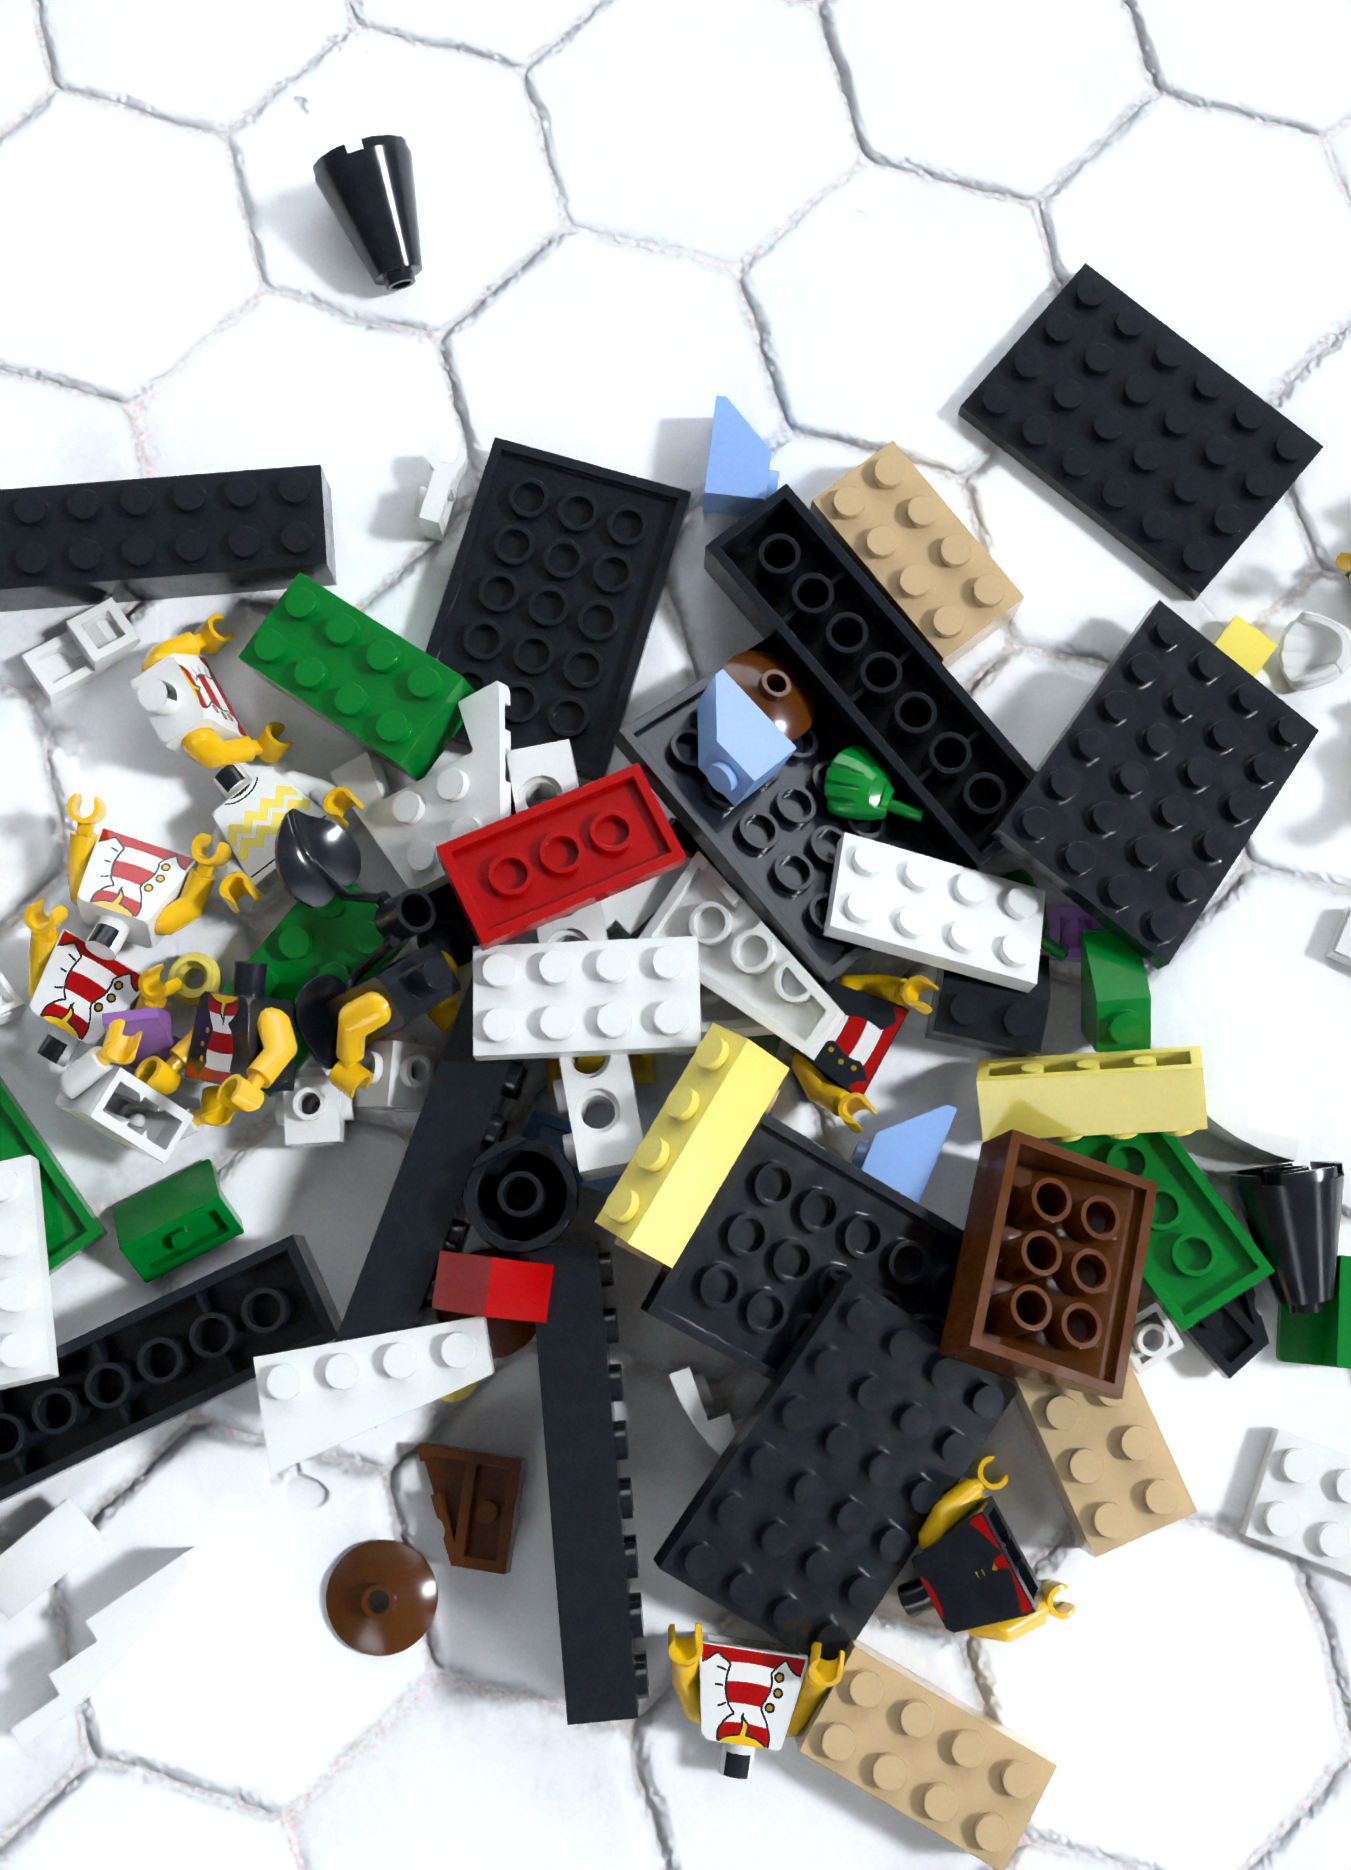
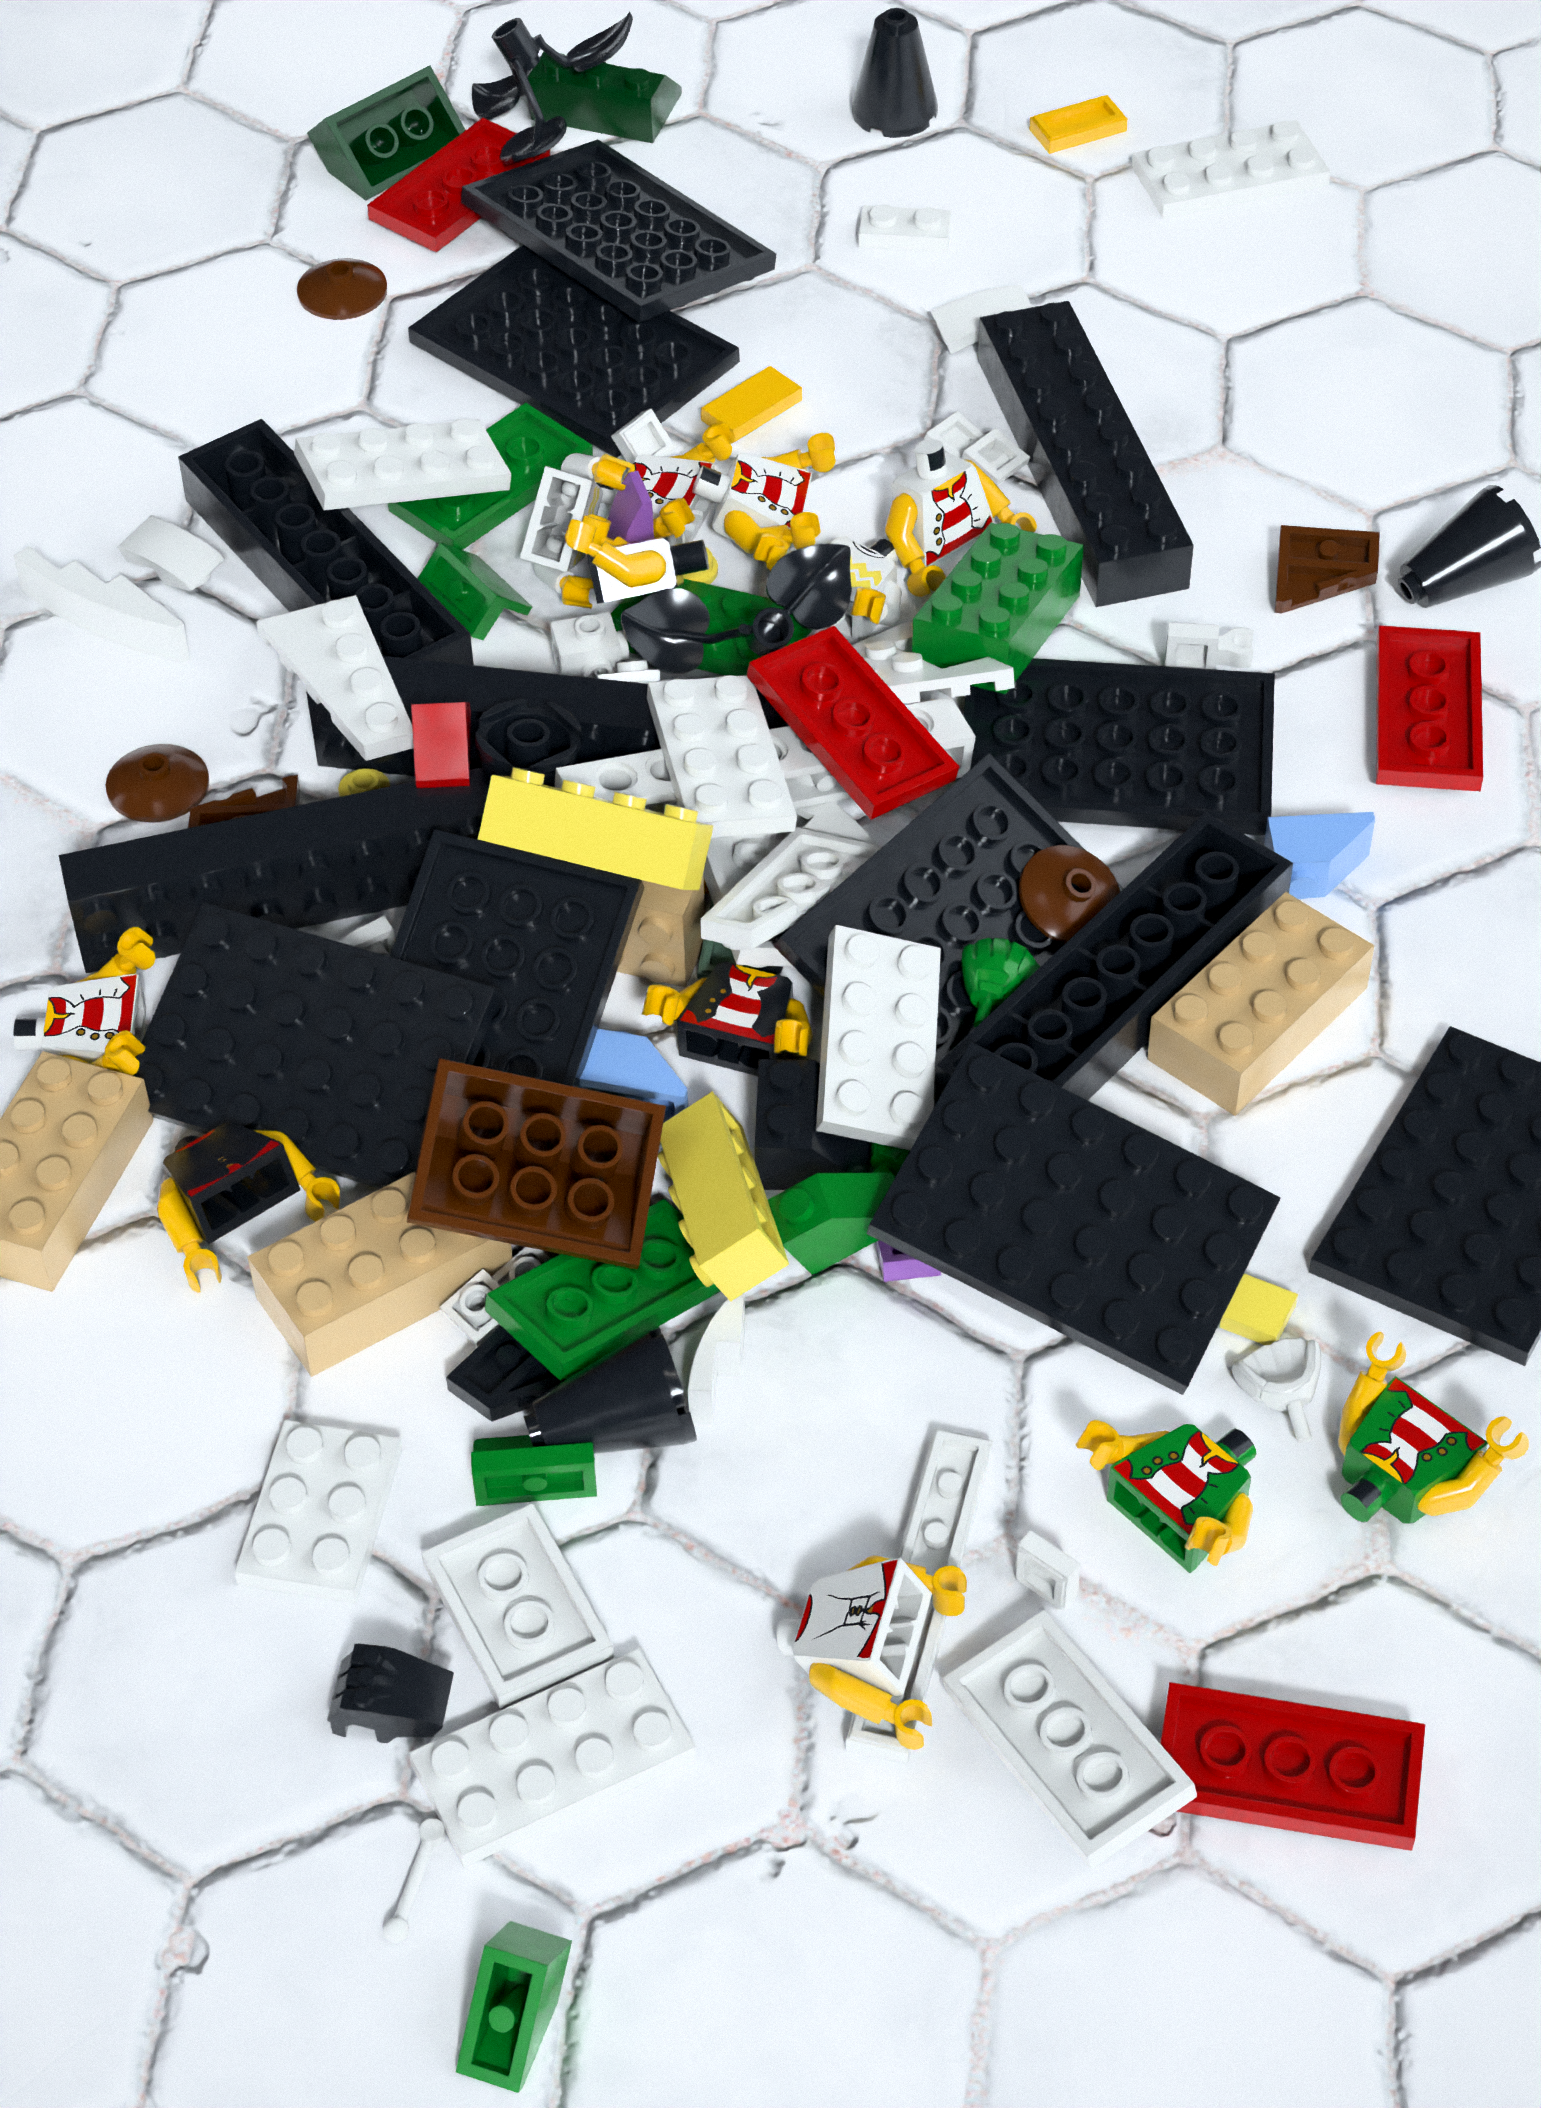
camera: 85 degrees right, 30 degrees down
(342, 352) = (1323, 564): none -> reddish brown wing
(387, 1001) = (683, 636): torso -> none
(562, 309) = (1429, 708): none -> red plate
(737, 740) = (1000, 842): light blue slope -> none

